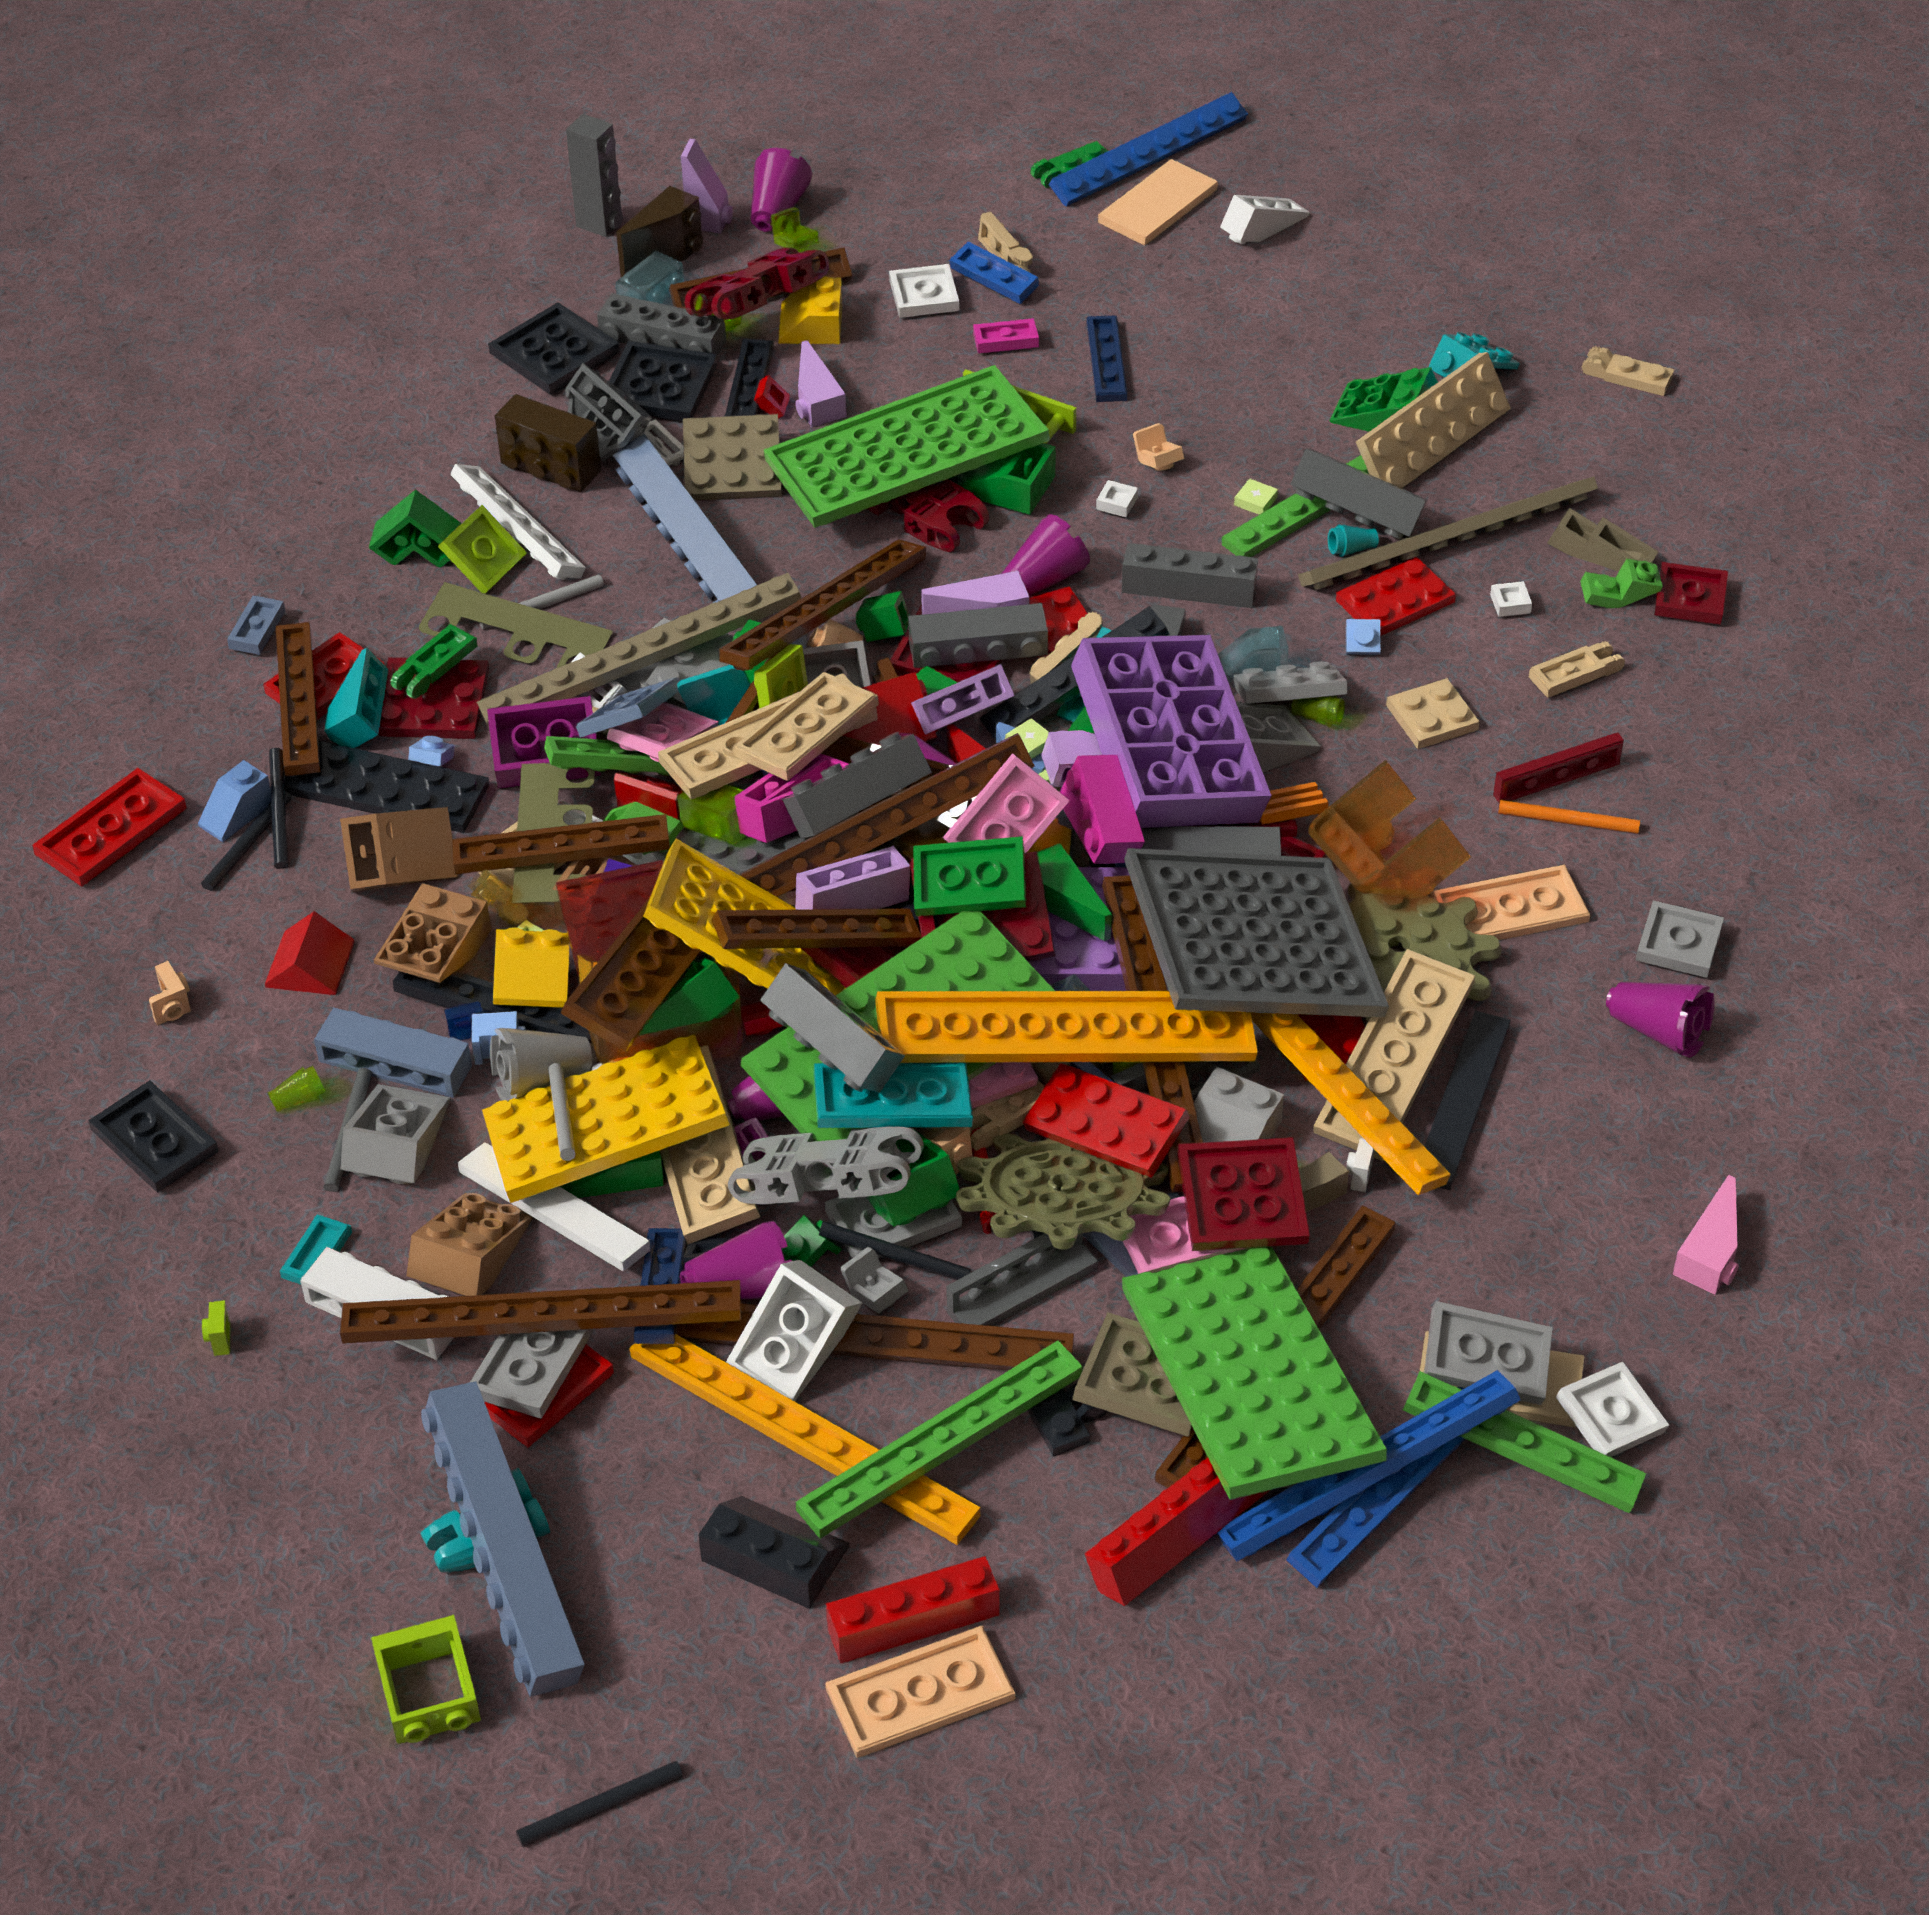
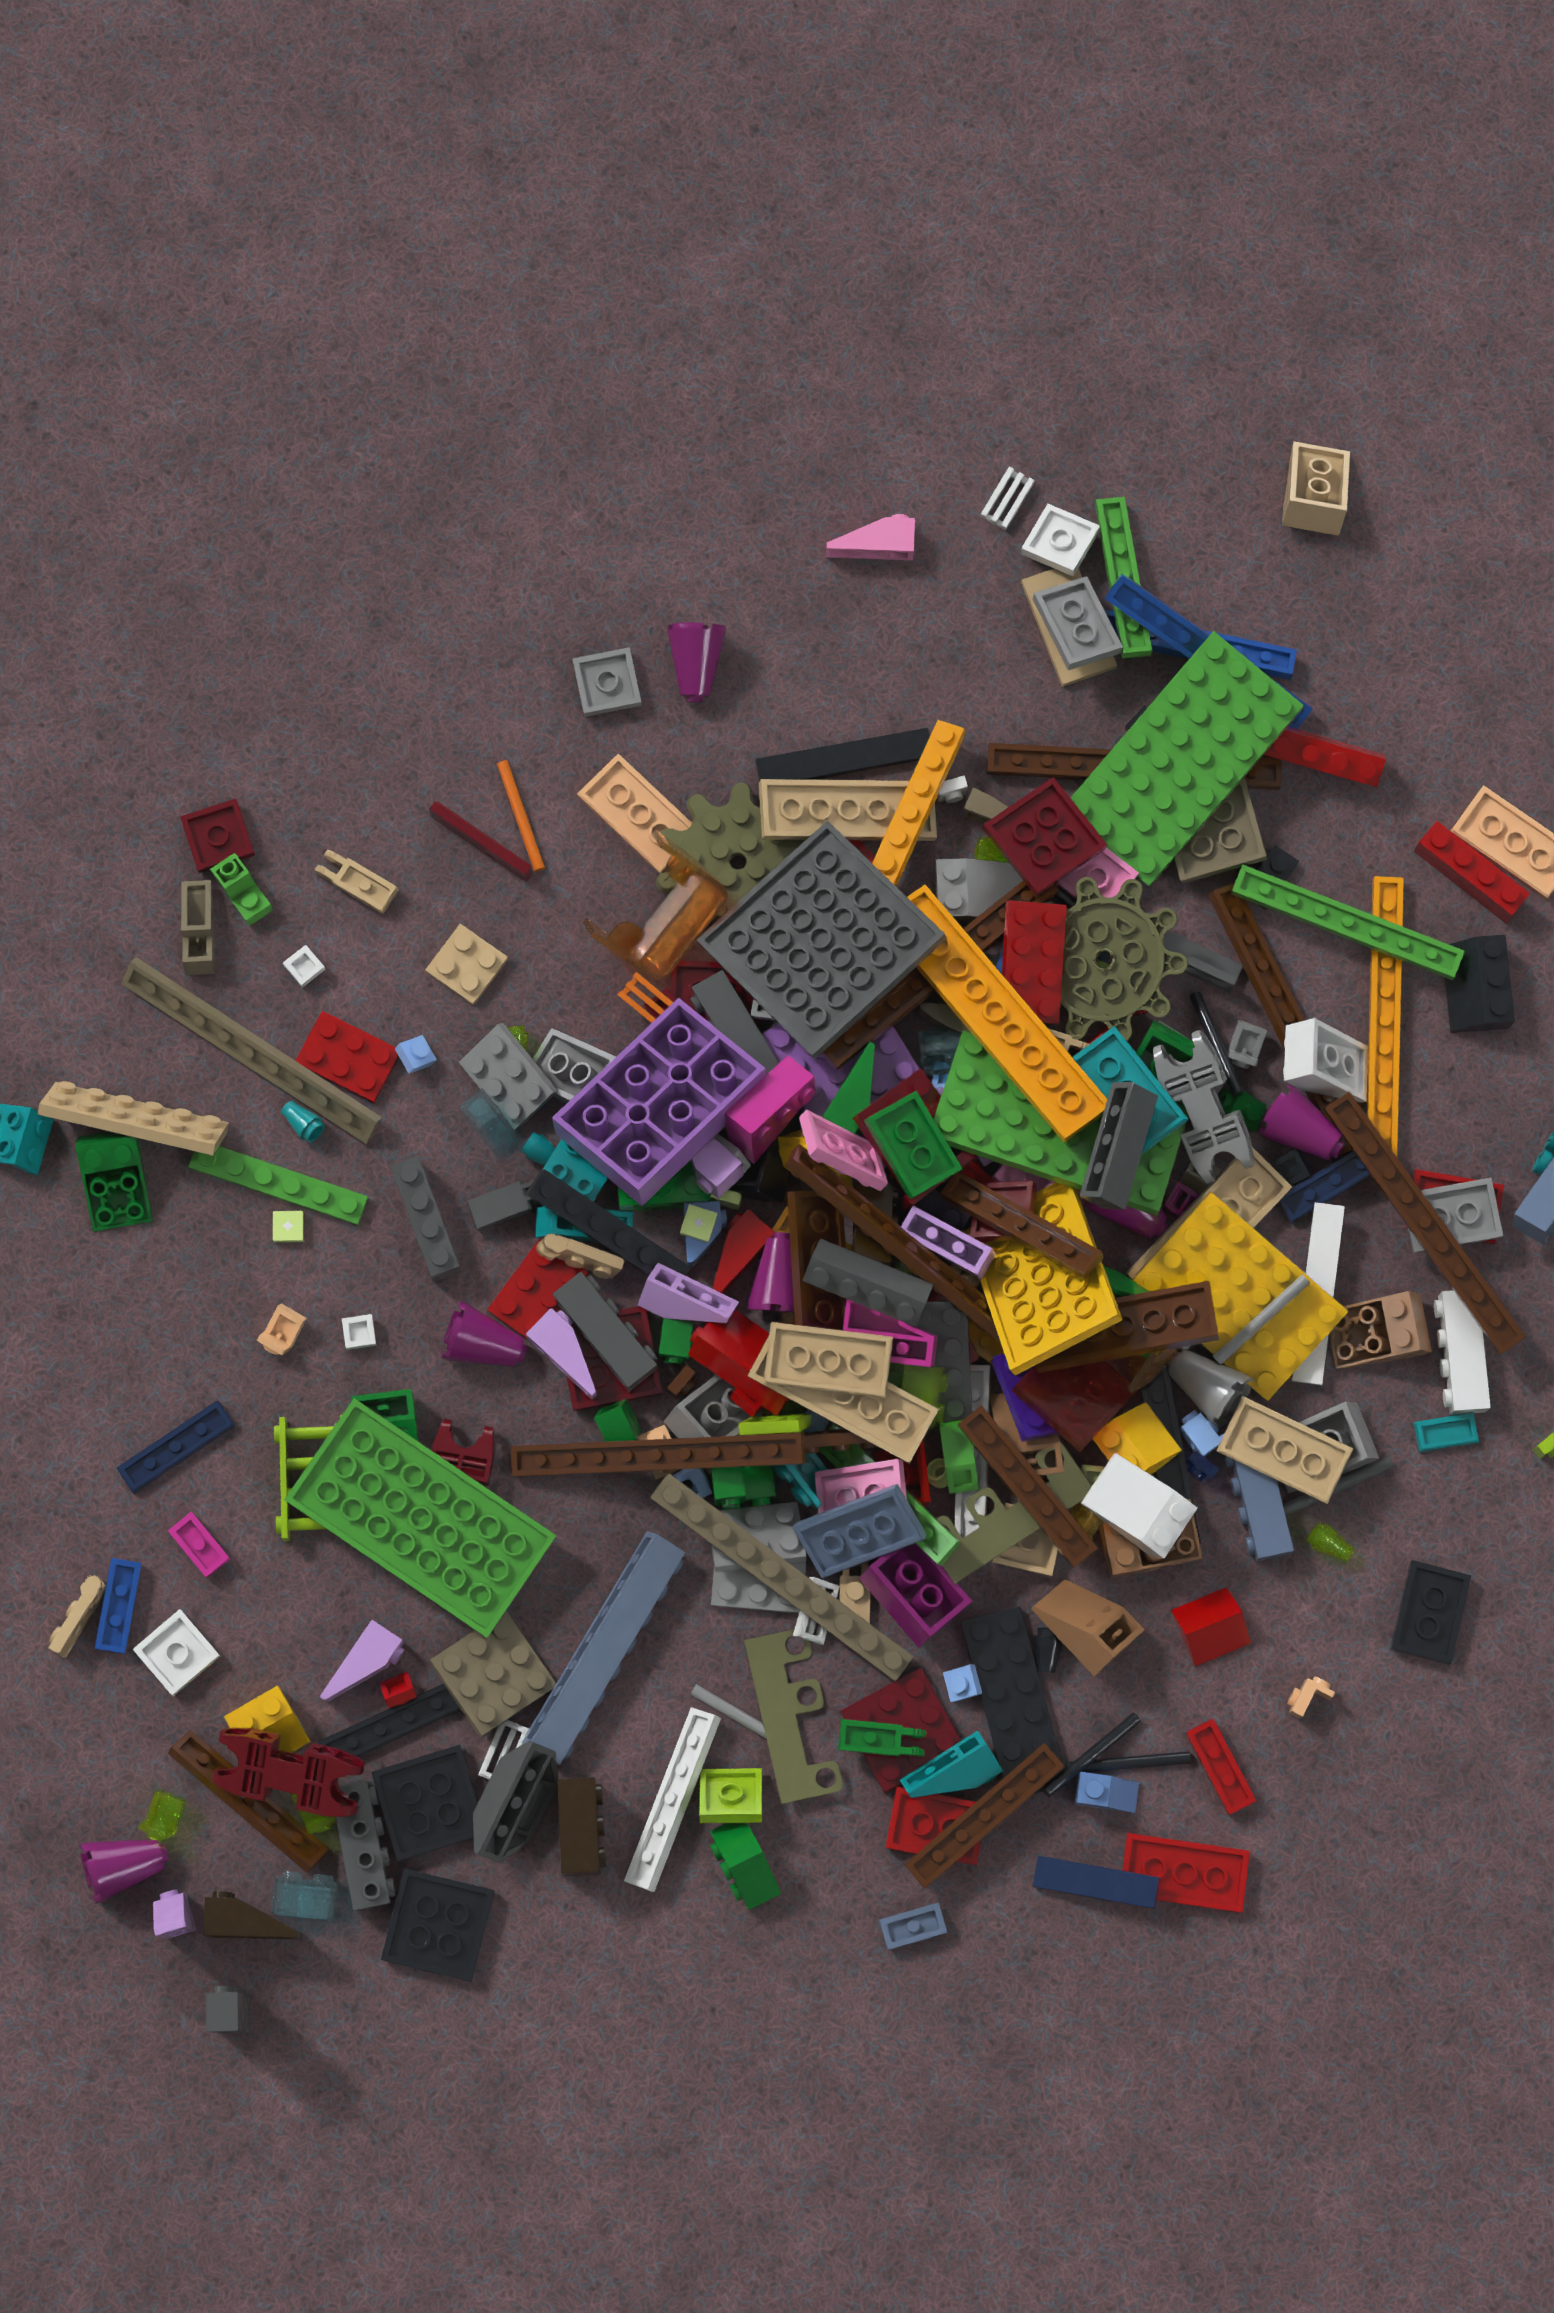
camera: 125 degrees left, 30 degrees up
(163, 755) = (1096, 1882): none -> dark blue tile
(174, 898) = (1220, 1766): none -> red plate
(415, 1071) = (1284, 1450): none -> tan tile
(460, 904) = (1139, 1506): none -> white slope
(1358, 492) = (262, 1130): dark grey brick -> none
(1529, 1720) = (1316, 488): none -> tan slope
(1727, 1407) = (1019, 478): none -> white tile

